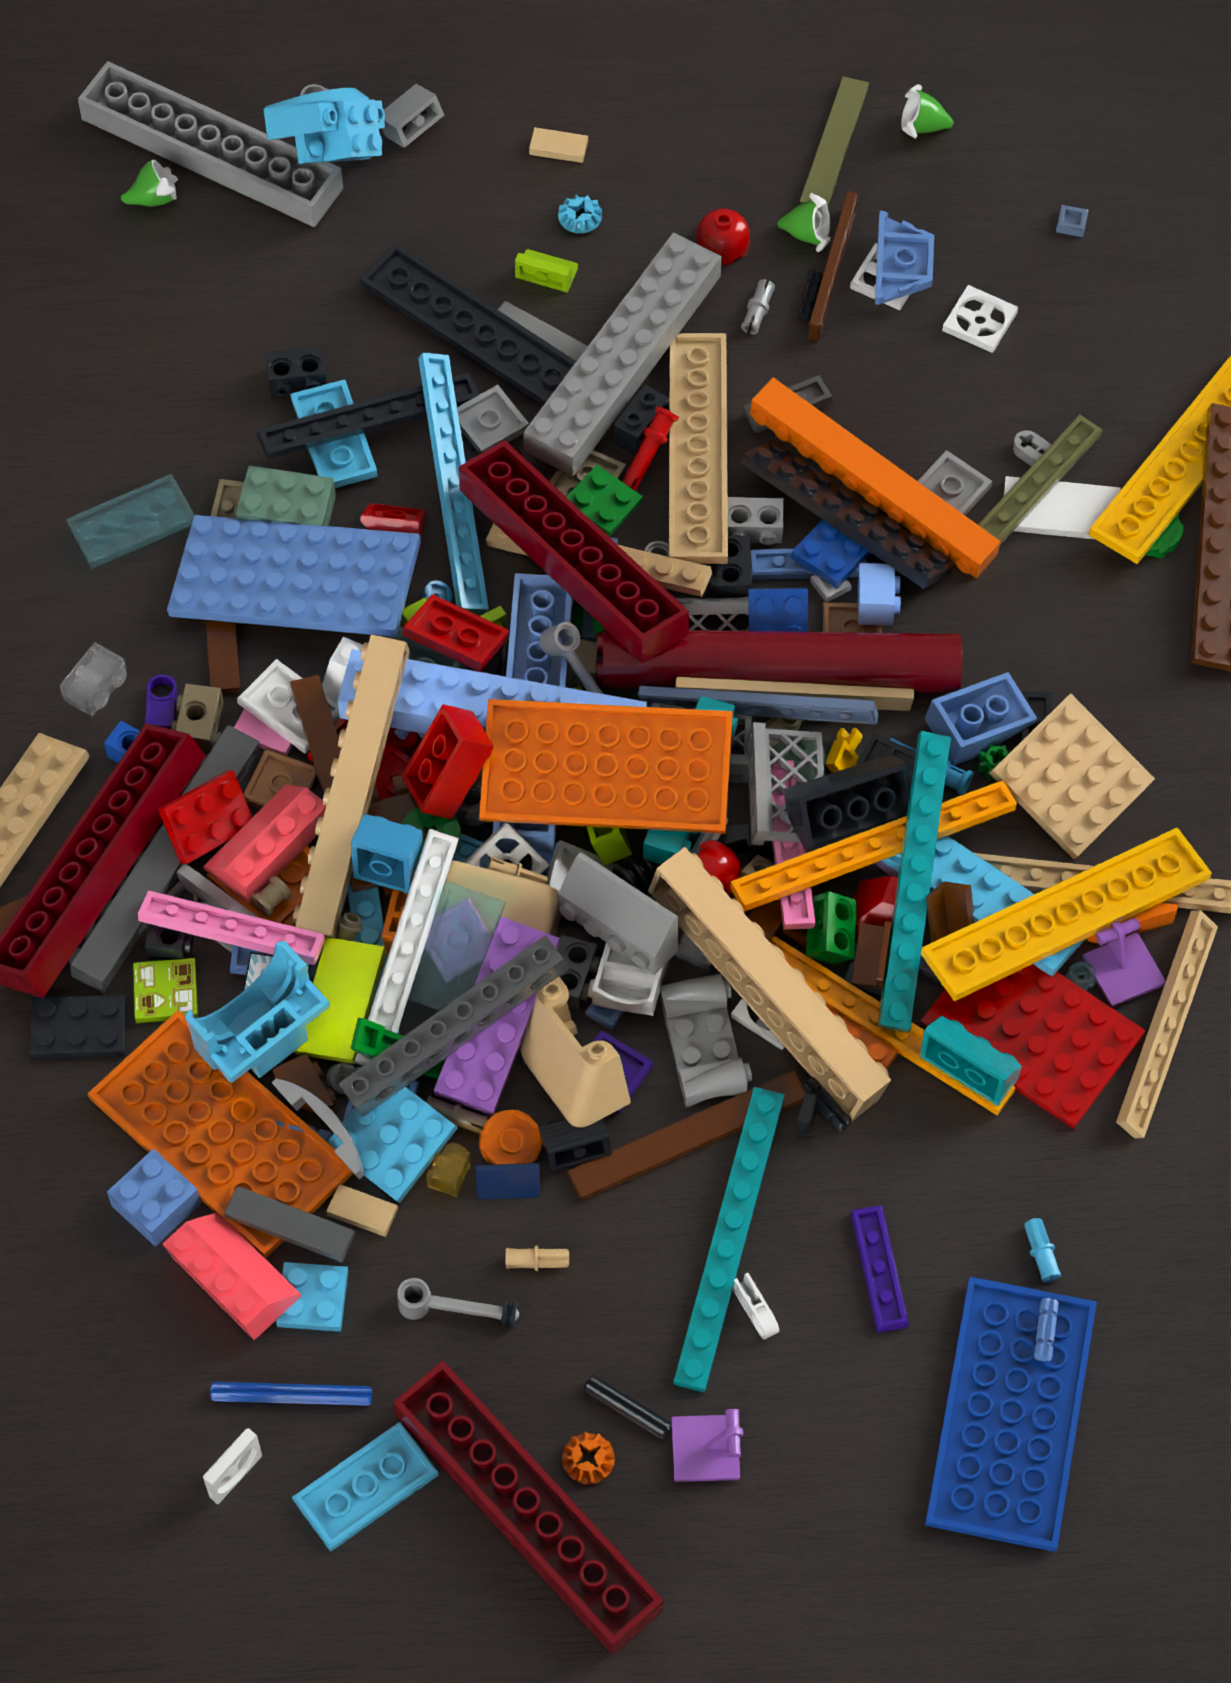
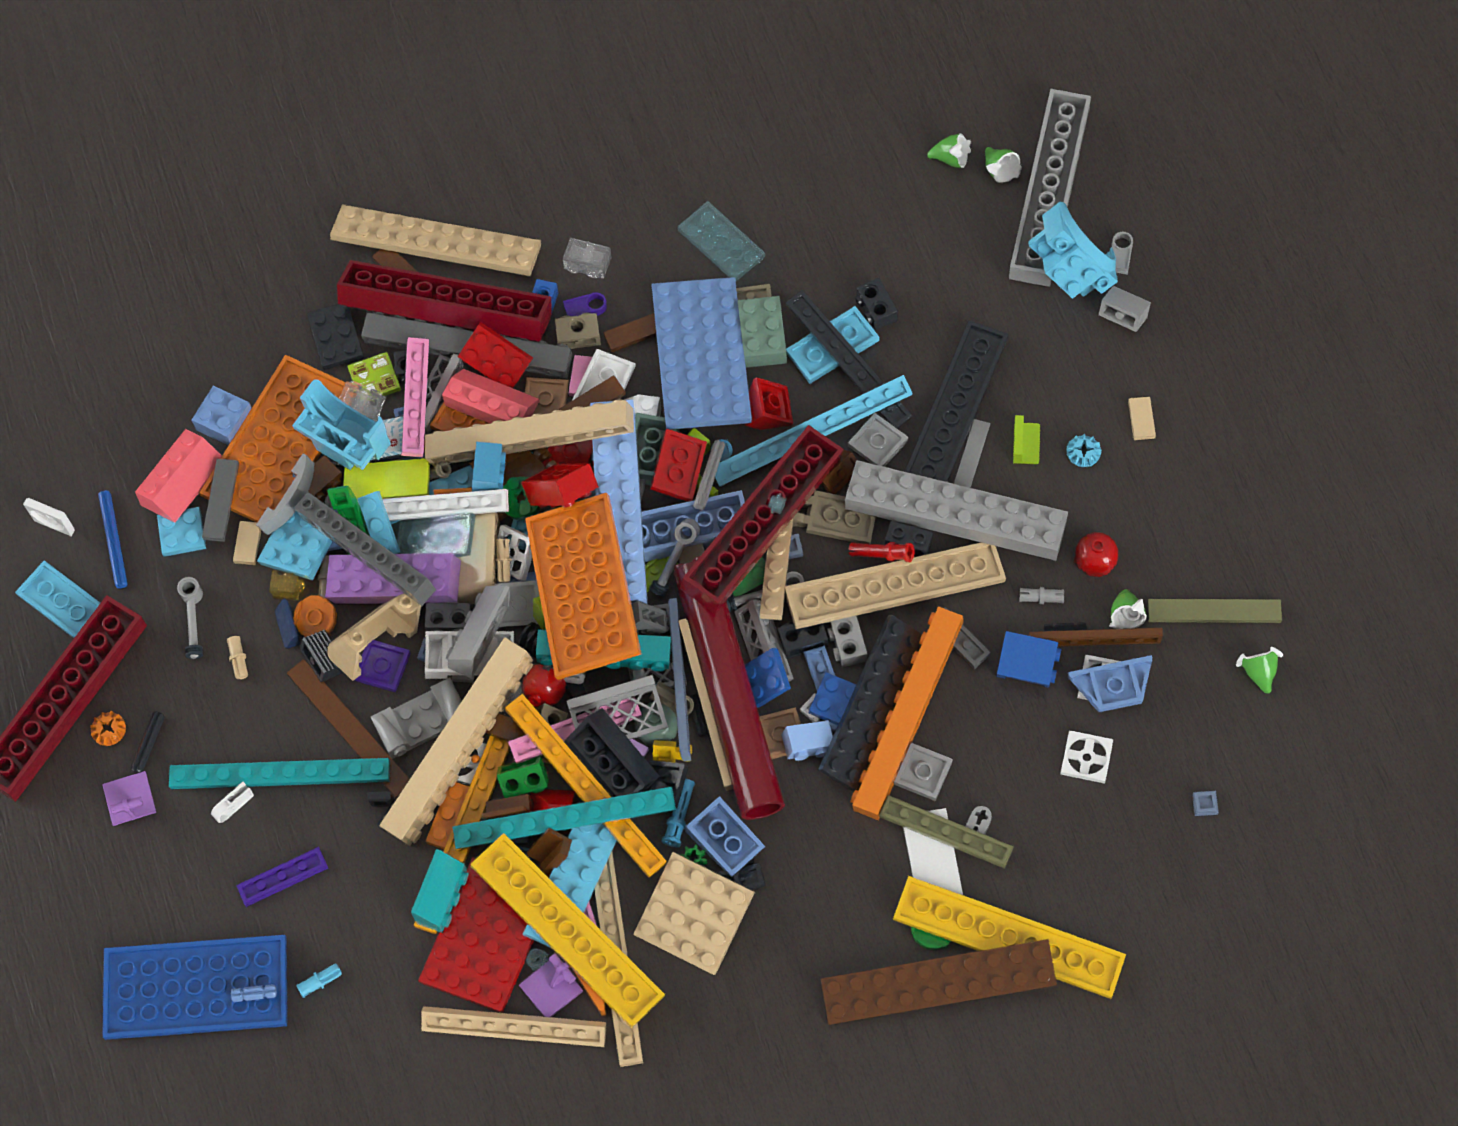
camera: 80 degrees right, 5 degrees up
(111, 233) = (951, 150): none -> hat
(205, 997) = (363, 400): none -> clear brick
(271, 895) = (449, 415): dark tan bush -> none
(400, 1014) = (378, 521): none -> medium azure plate
(481, 605) = (709, 475): none -> light grey axle
(568, 516) = (777, 503): none -> clear light blue plate
(605, 499) = (827, 533): green plate -> none
(841, 338) = (1028, 659): none -> blue panel

